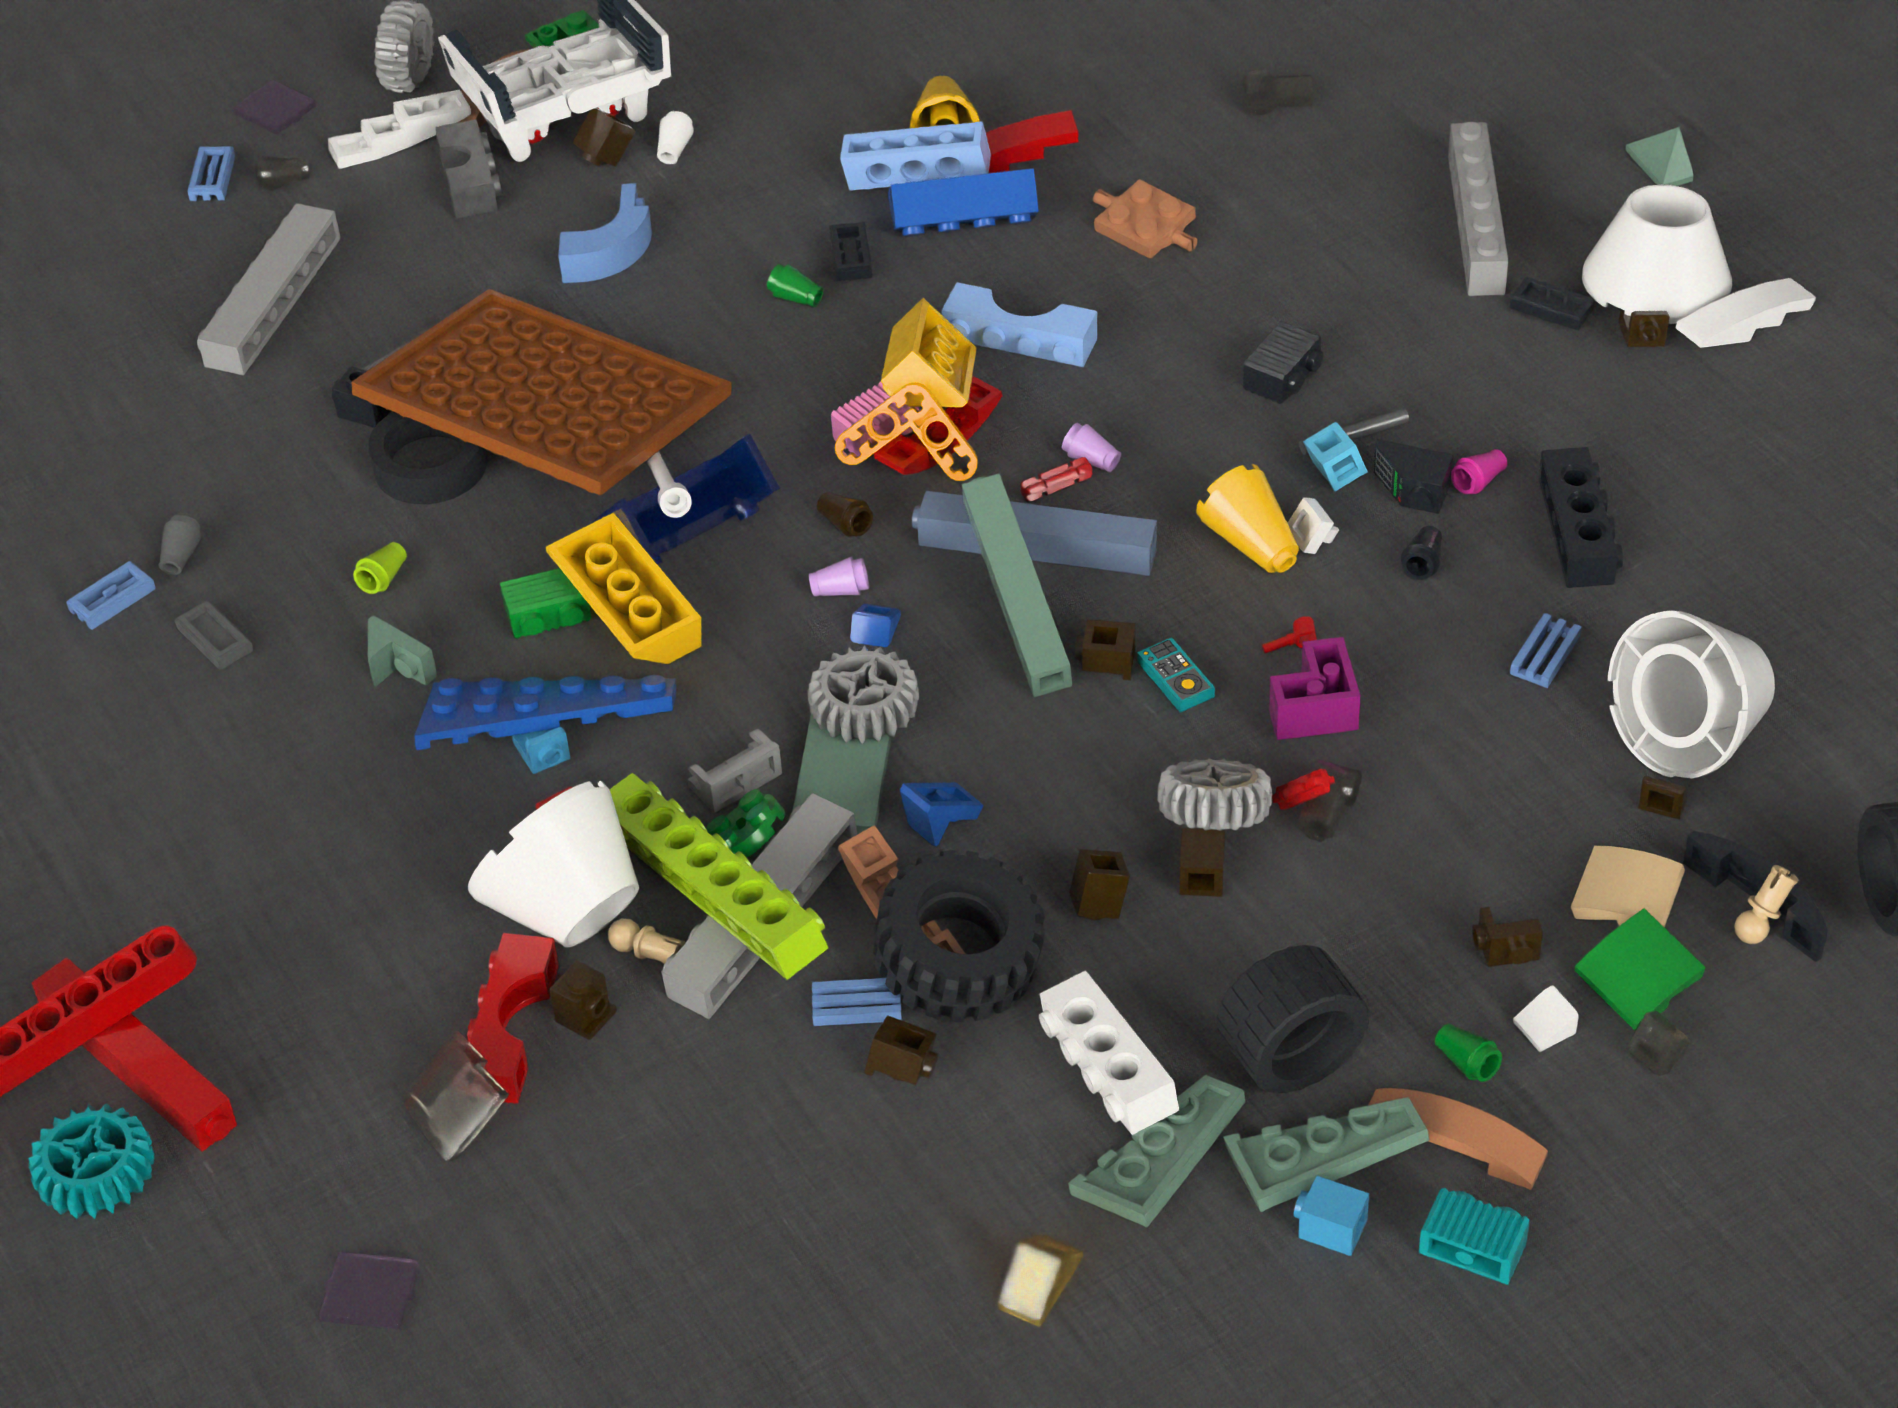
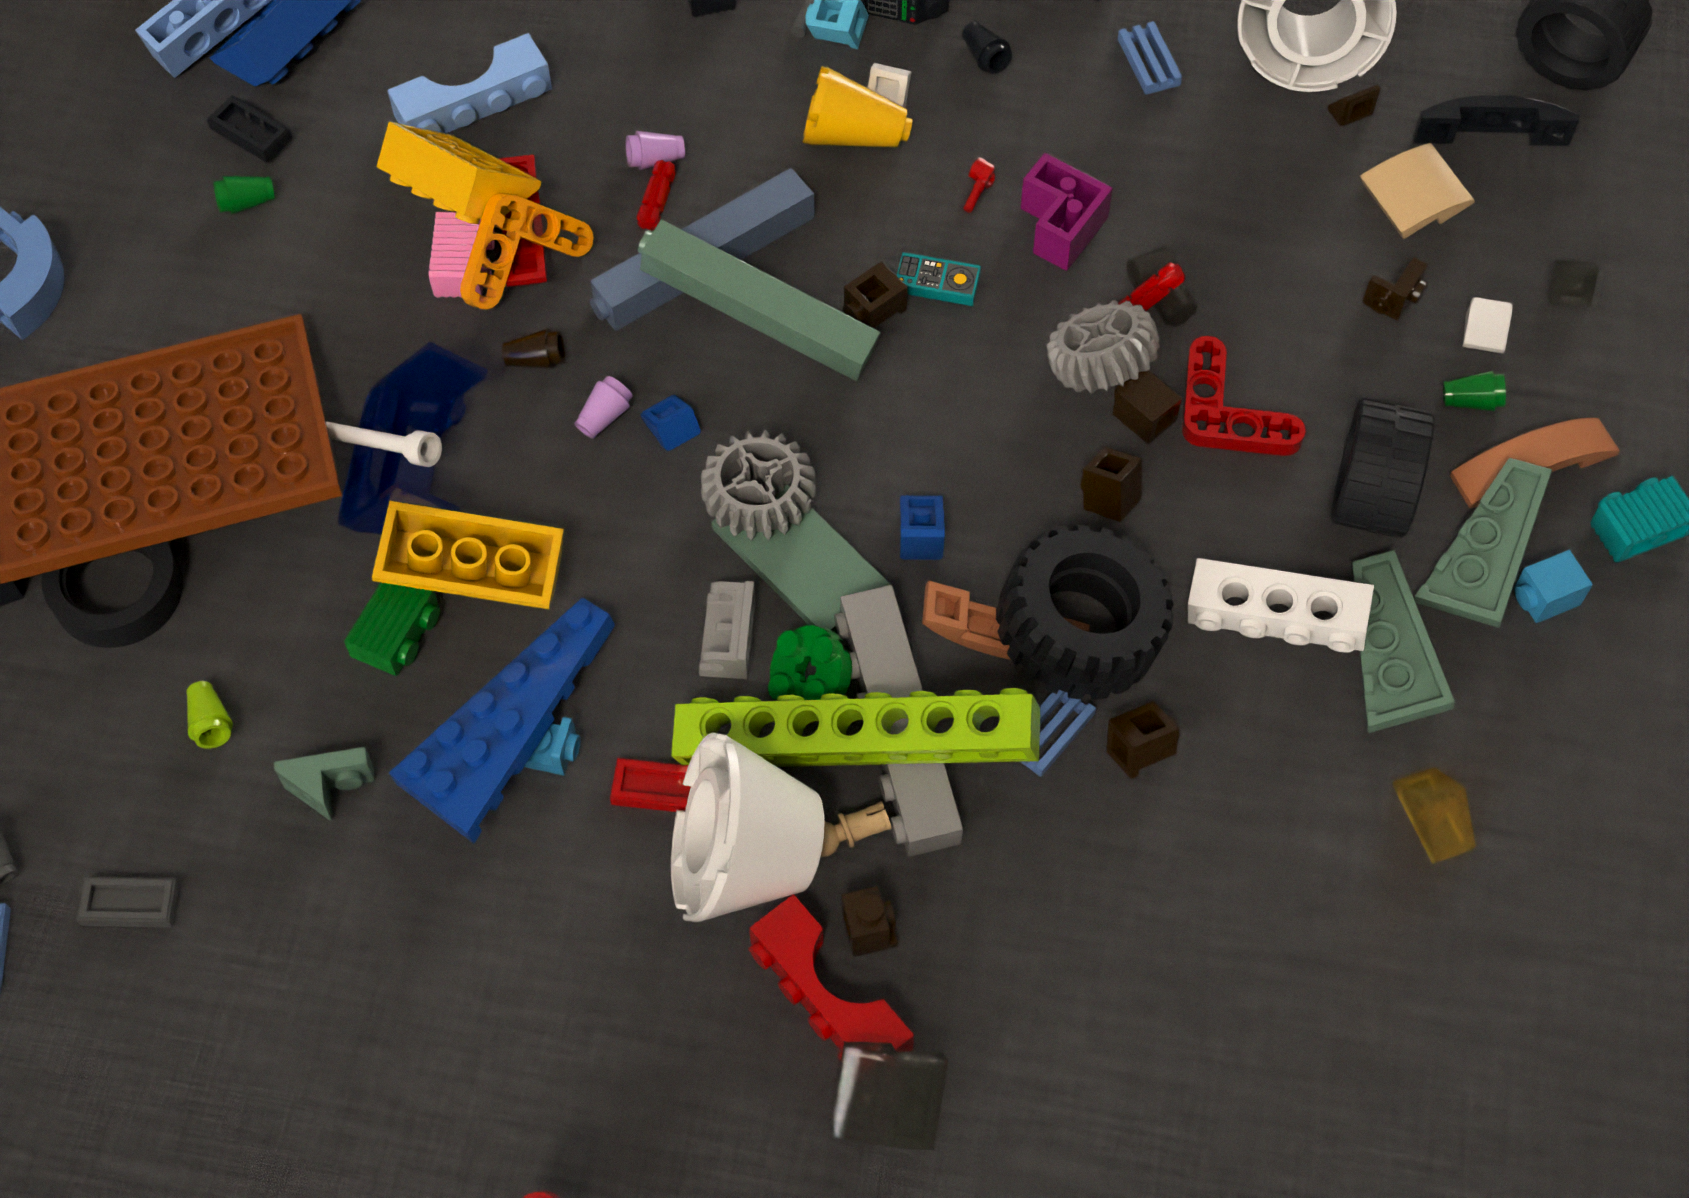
camera: 50 degrees left, 15 degrees up
(1254, 907) = (1213, 412): none -> red beam
(1639, 968) = (1498, 240): green slope -> none
(1753, 924) = (1517, 150): tan pin -> none

